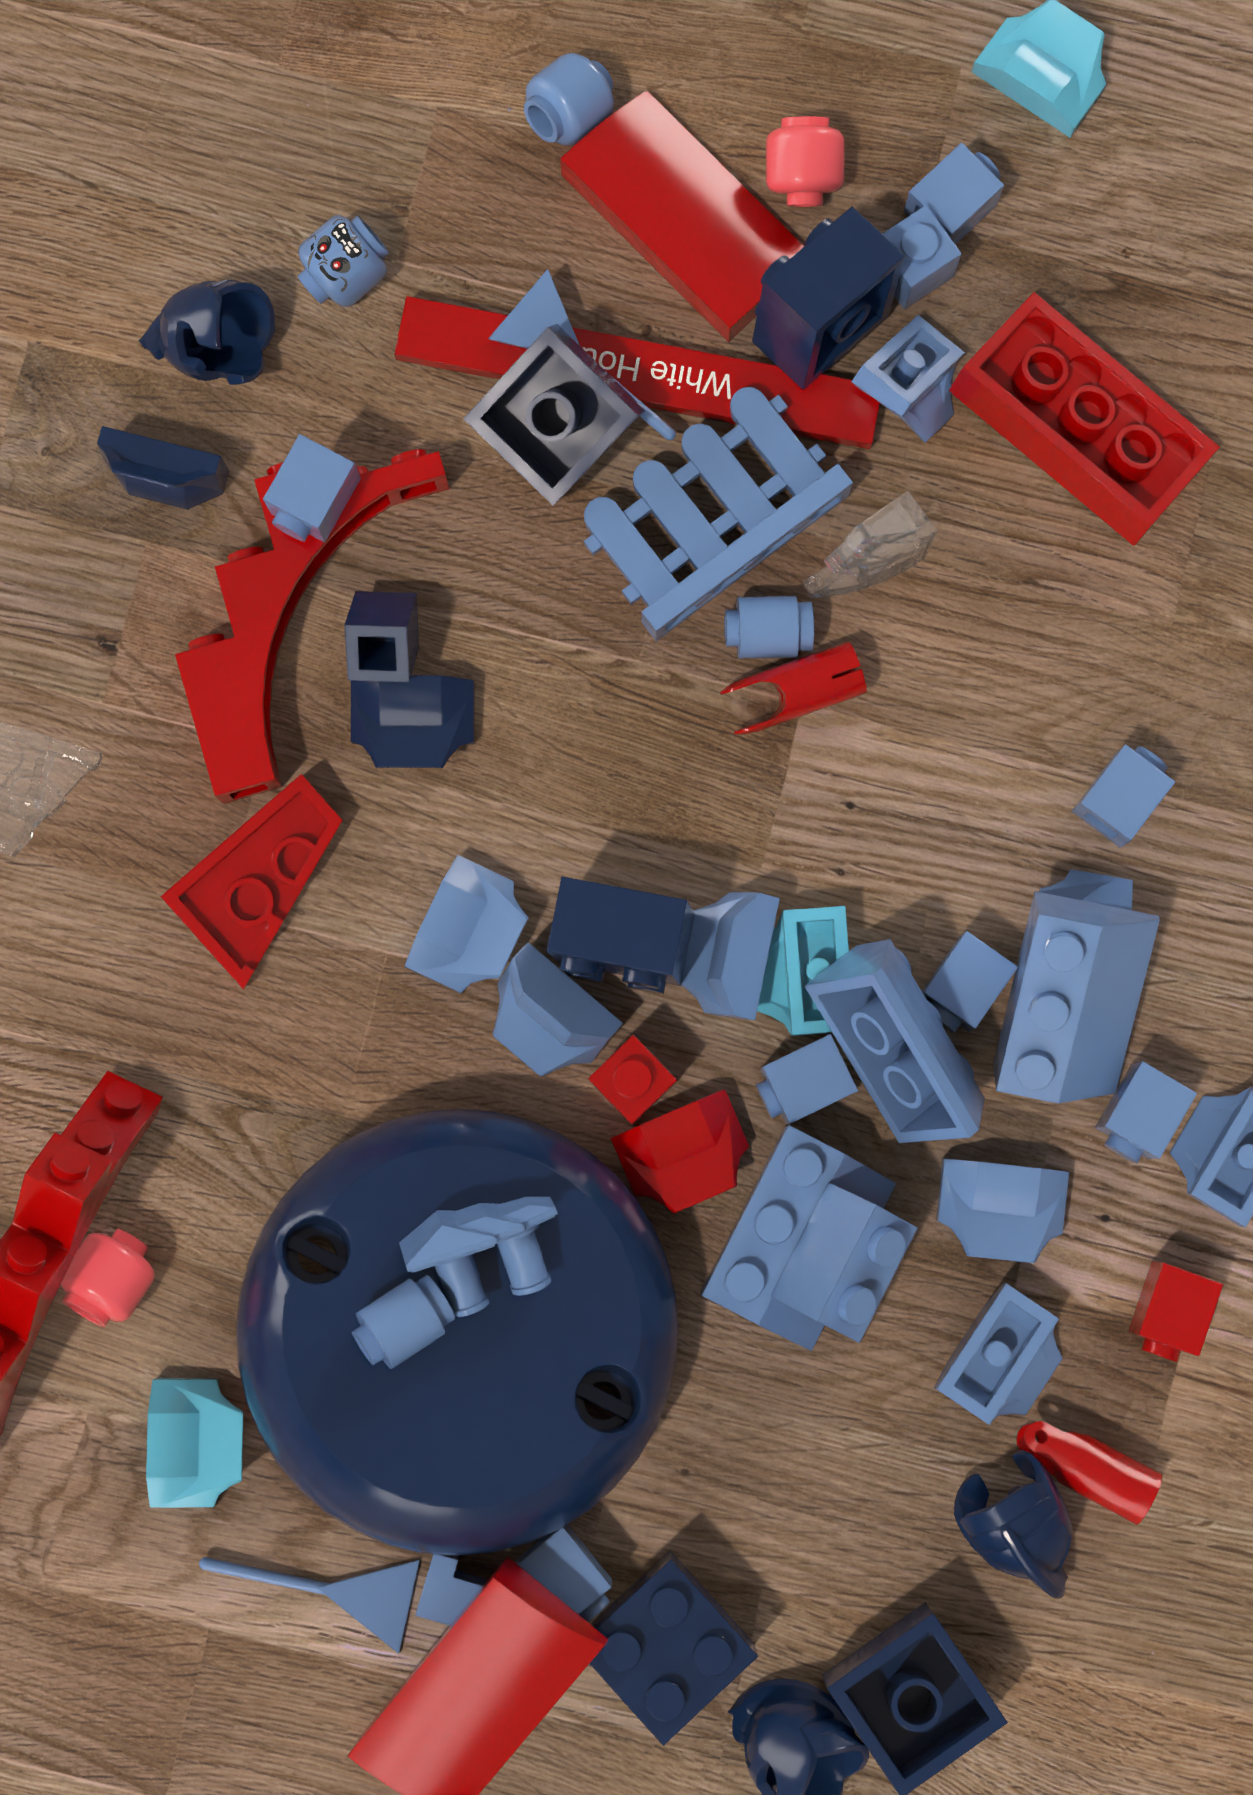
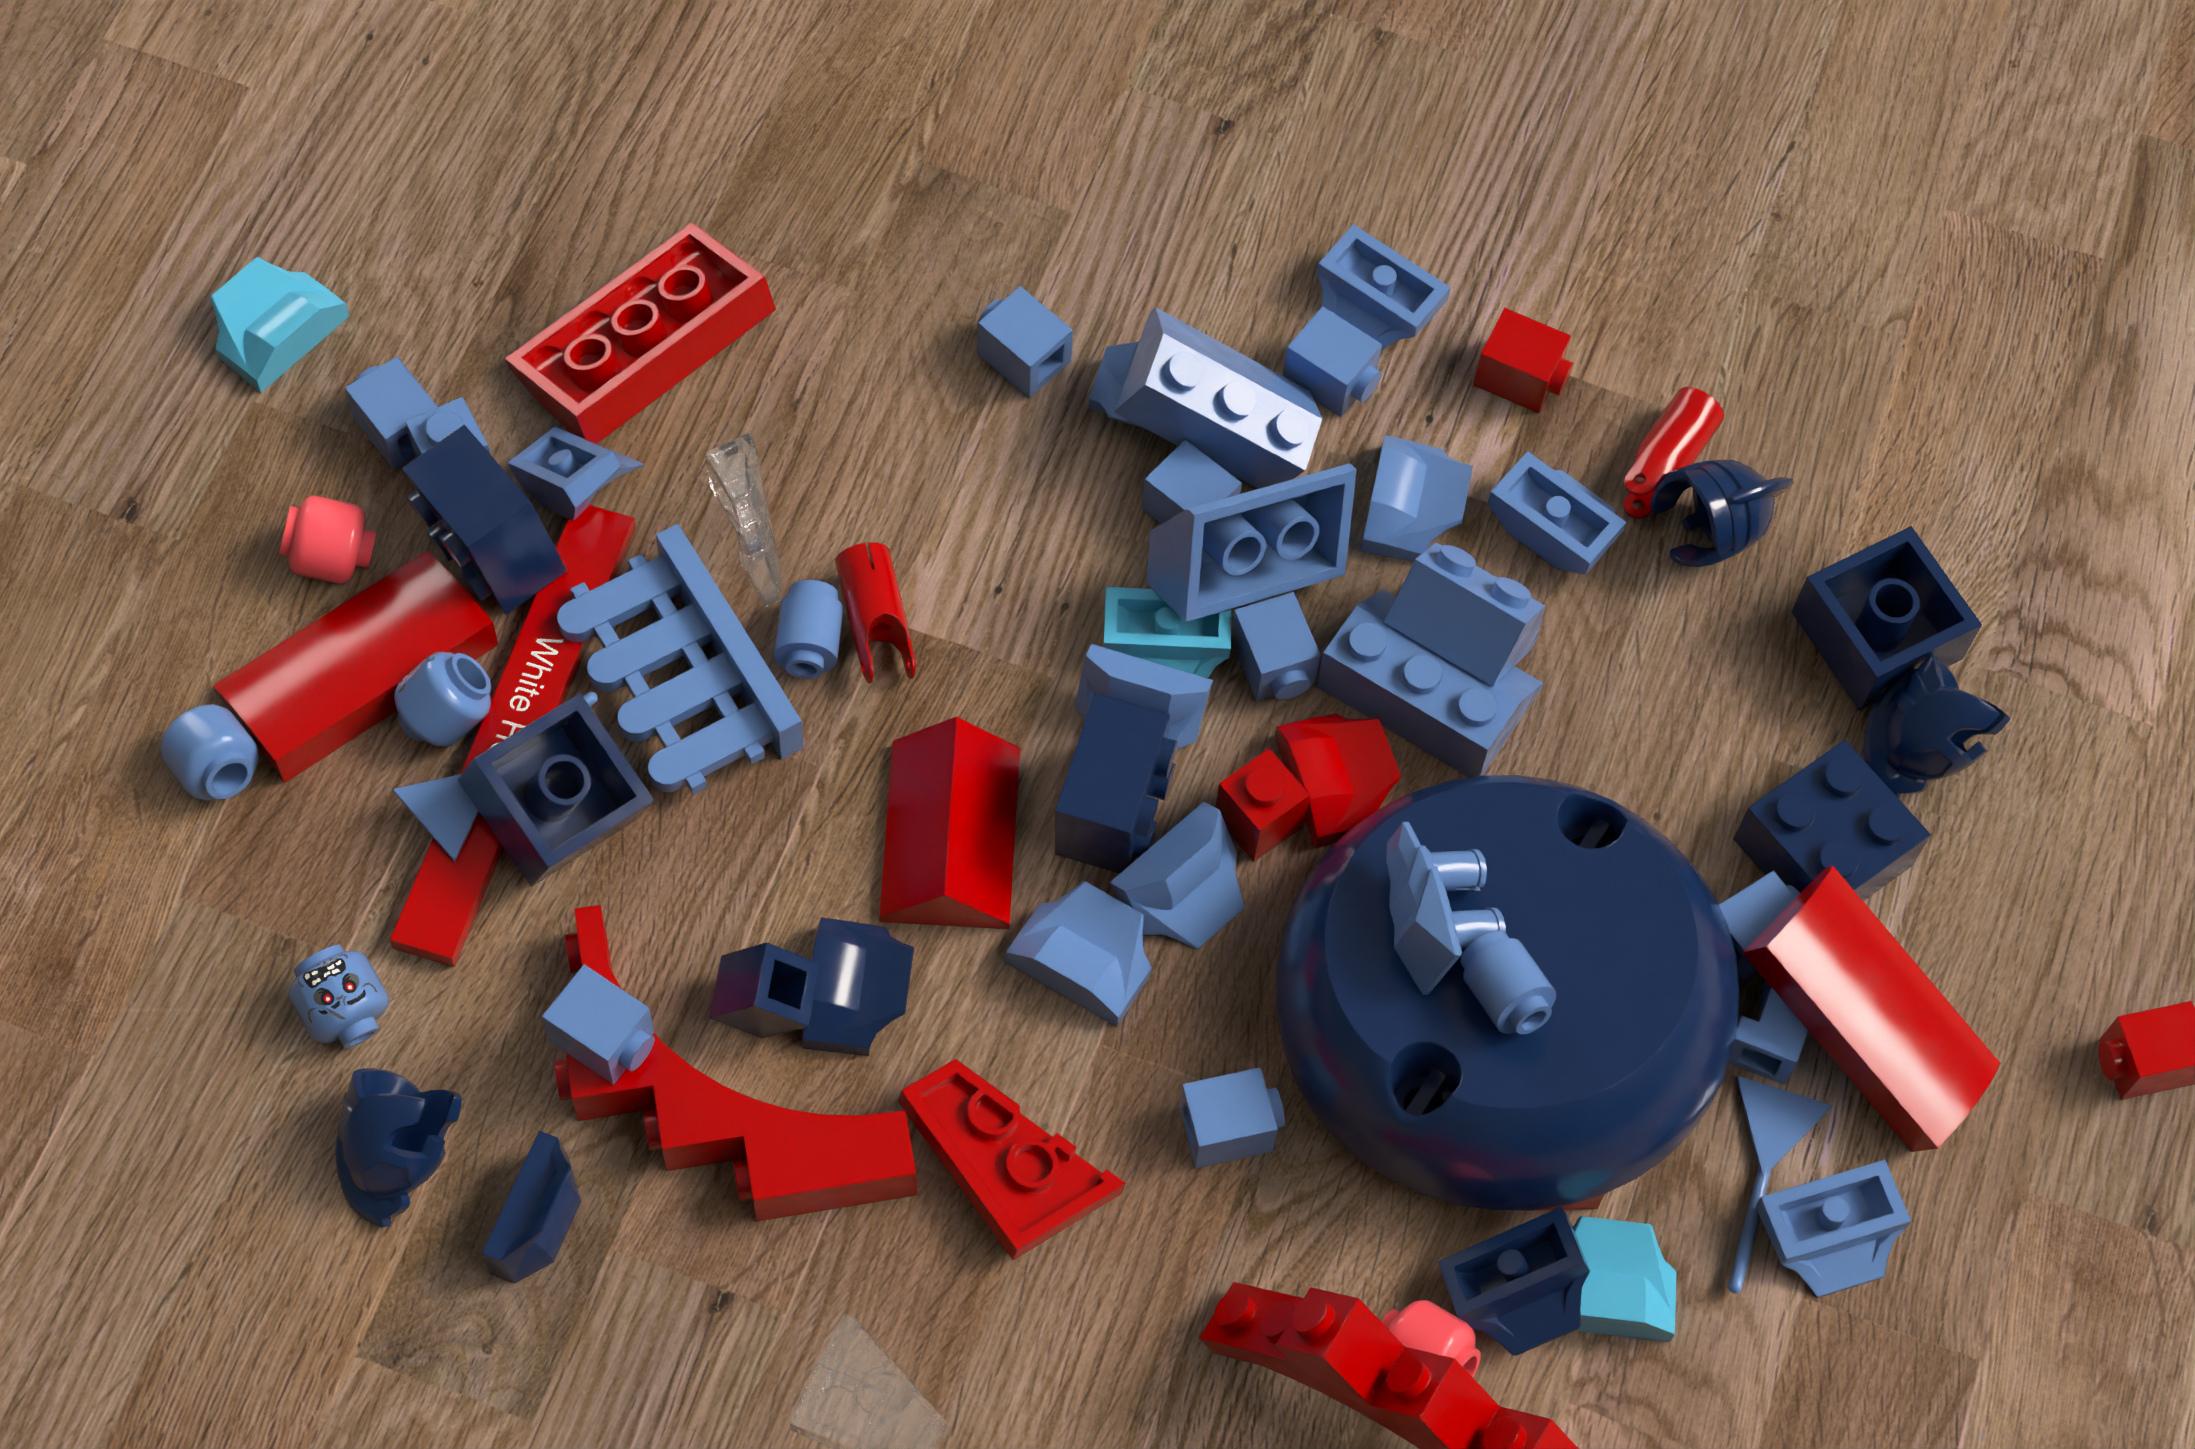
camera: 90 degrees left, 20 degrees down
(173, 1358) = (1521, 1283): none -> dark blue slope
(270, 1657) = (1837, 1227): none -> medium blue slope
(313, 1079) = (1230, 1117): none -> medium blue brick
(580, 790) = (950, 828): none -> red slope
(646, 297) = (443, 698): none -> medium blue head

